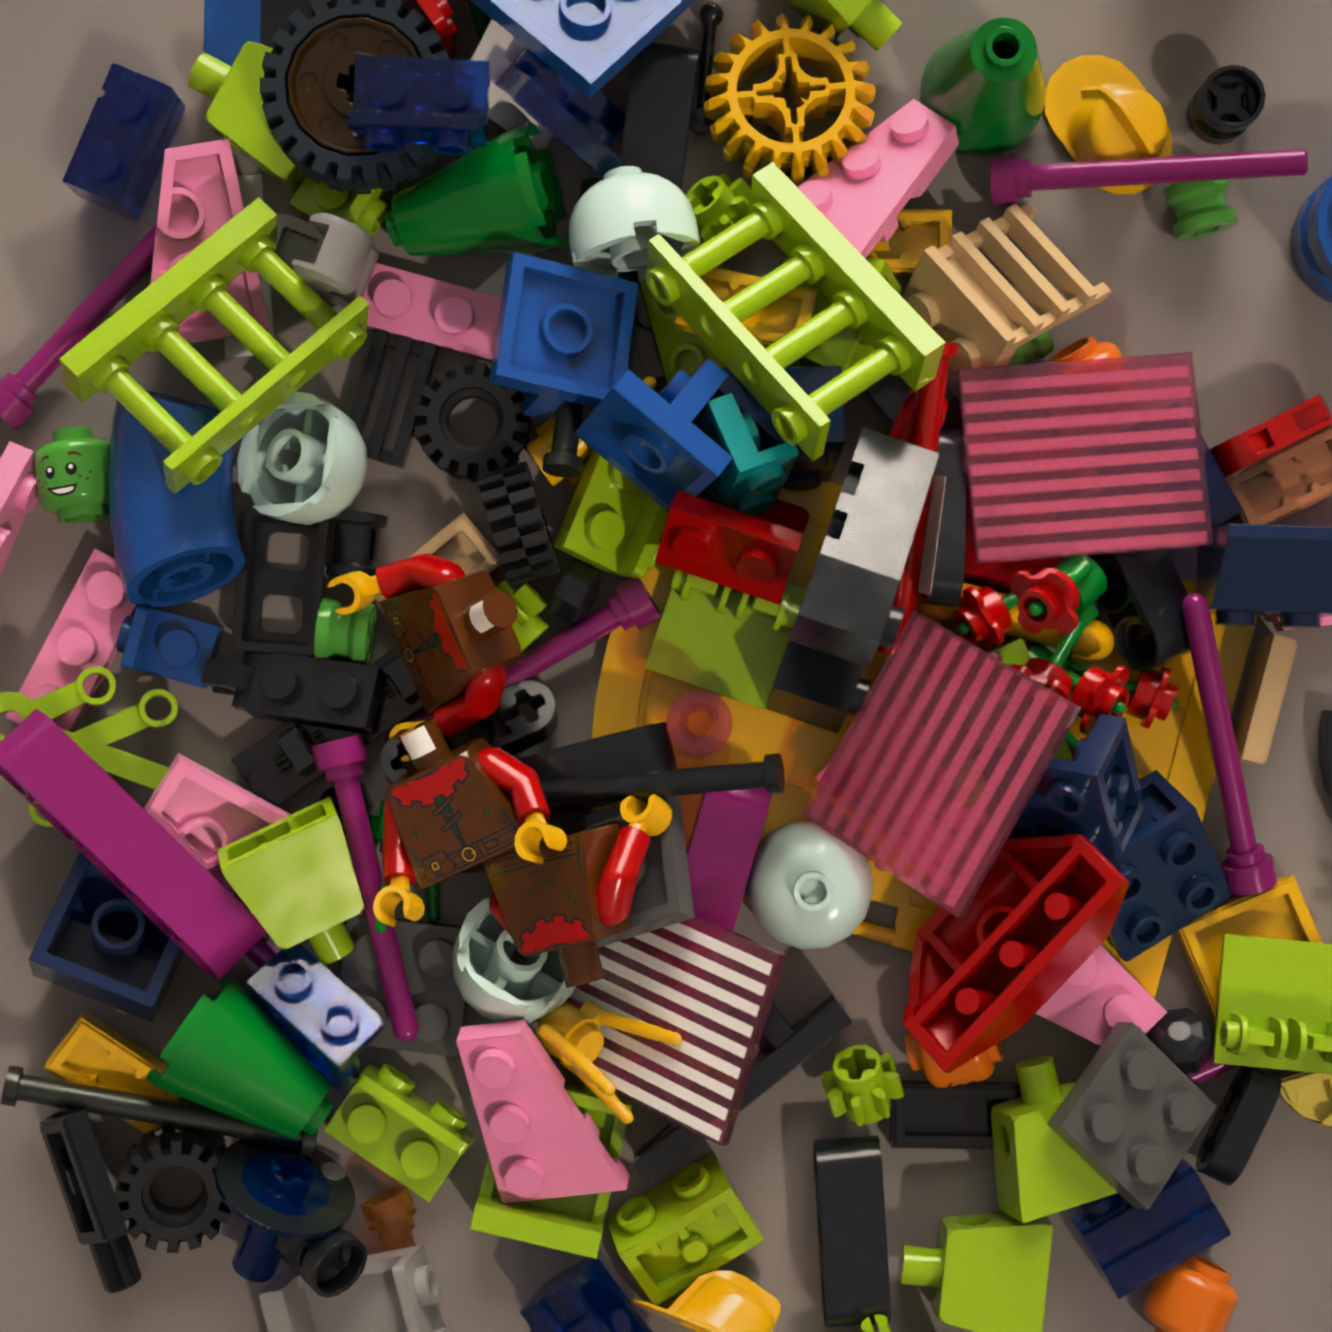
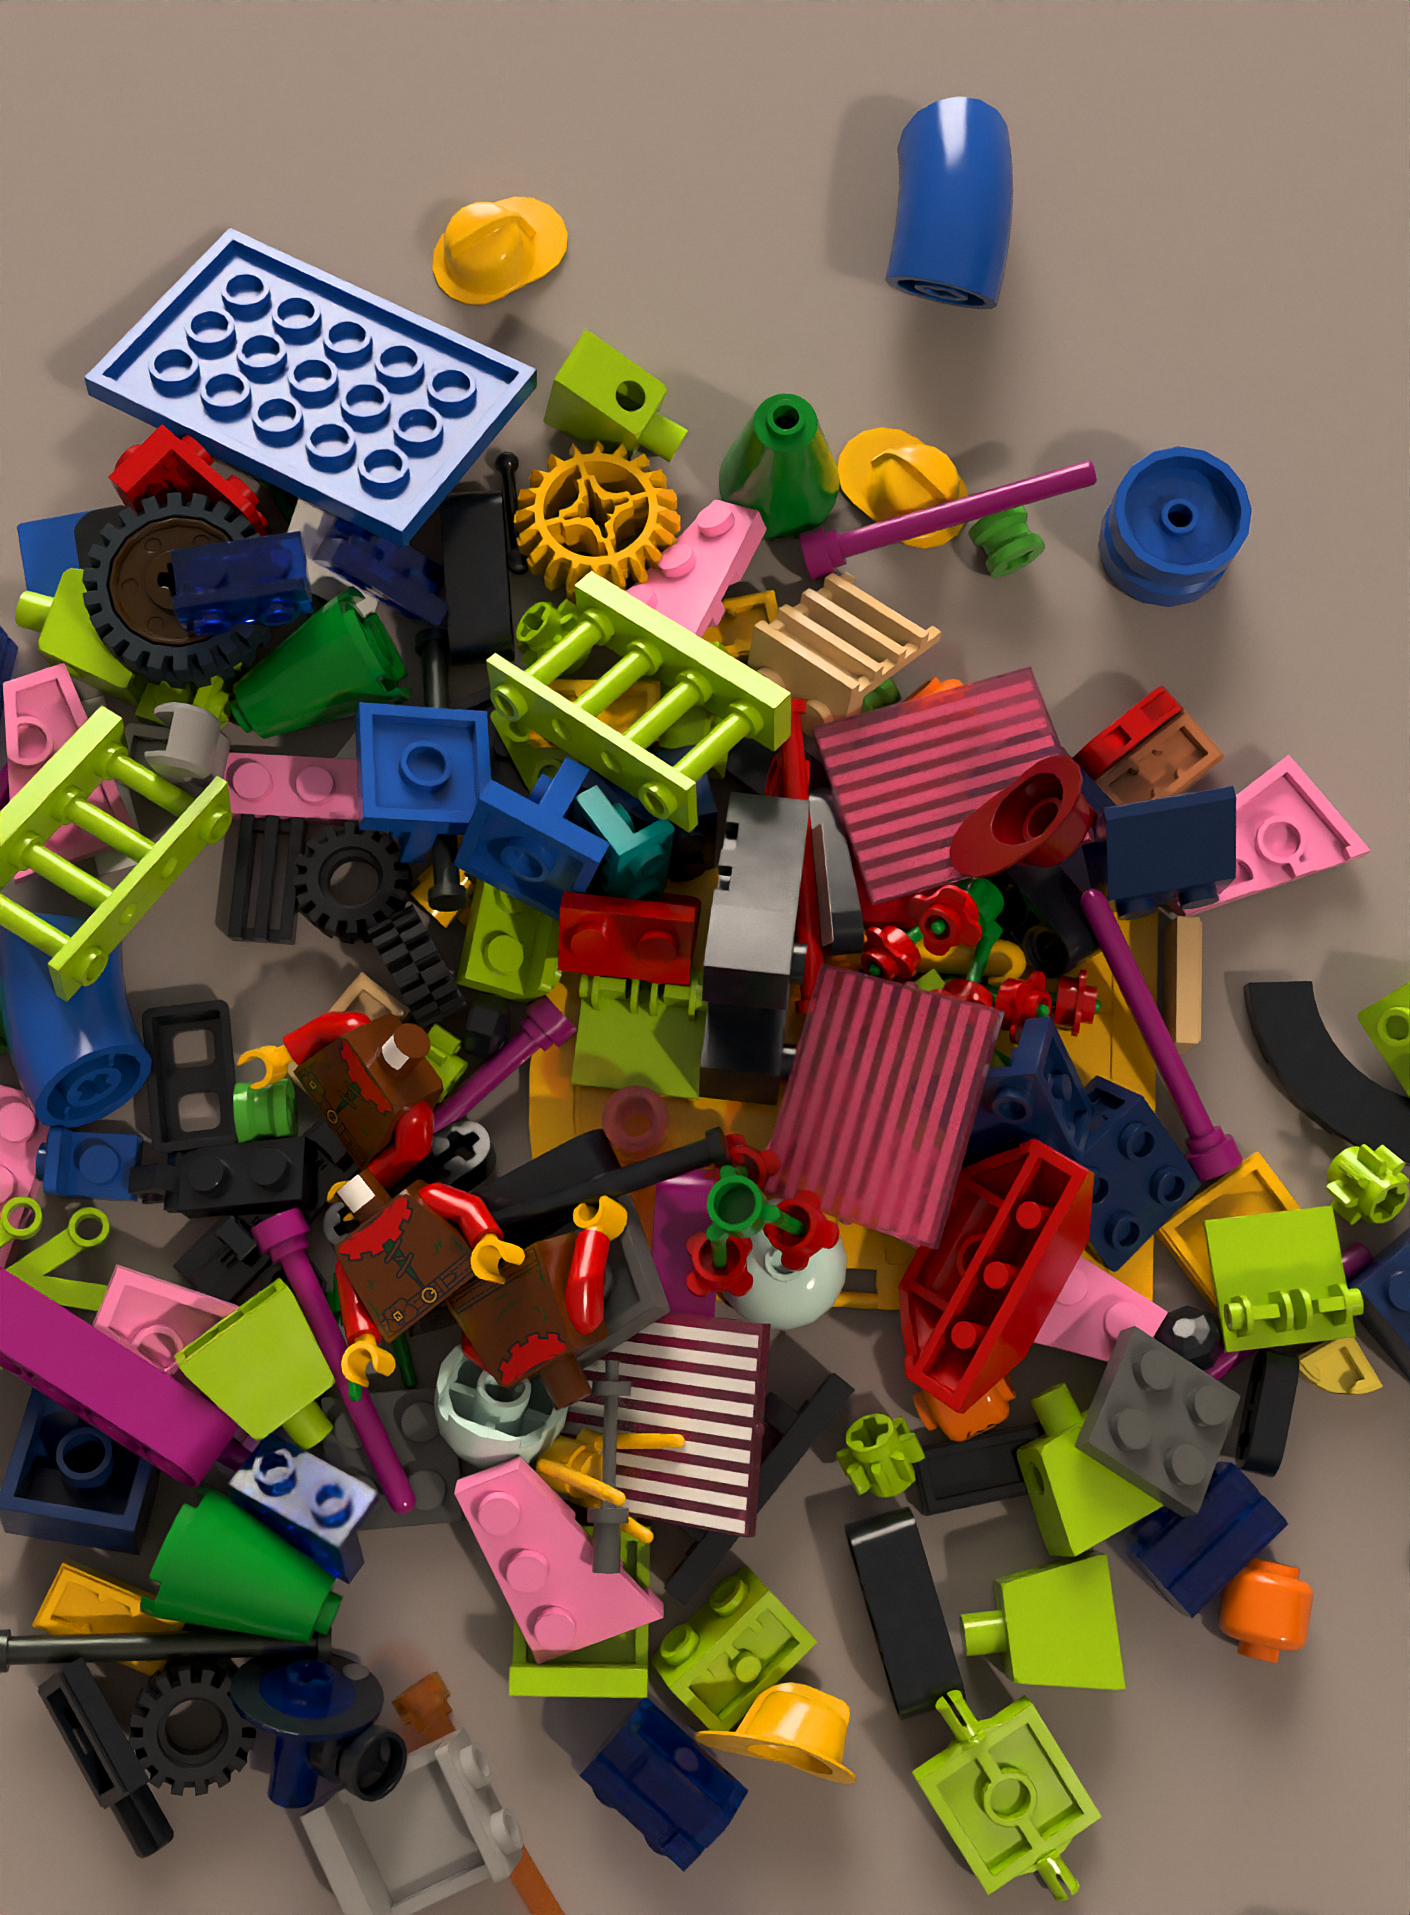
camera: 15 degrees left, 10 degrees down
(303, 461) = (191, 951): light aqua cylinder -> none
(356, 542) = (259, 1018): black bush -> none
(401, 1130) = (418, 1613): lime bracket -> none
(592, 1100) = (608, 1517): none -> dark grey piece
(622, 214) = (452, 651): light aqua cylinder -> none
(782, 844) = (741, 1211): none -> red plant
(1151, 517) = (1028, 823): none -> dark red piece
(1236, 94) = (1012, 431): black wheel -> none

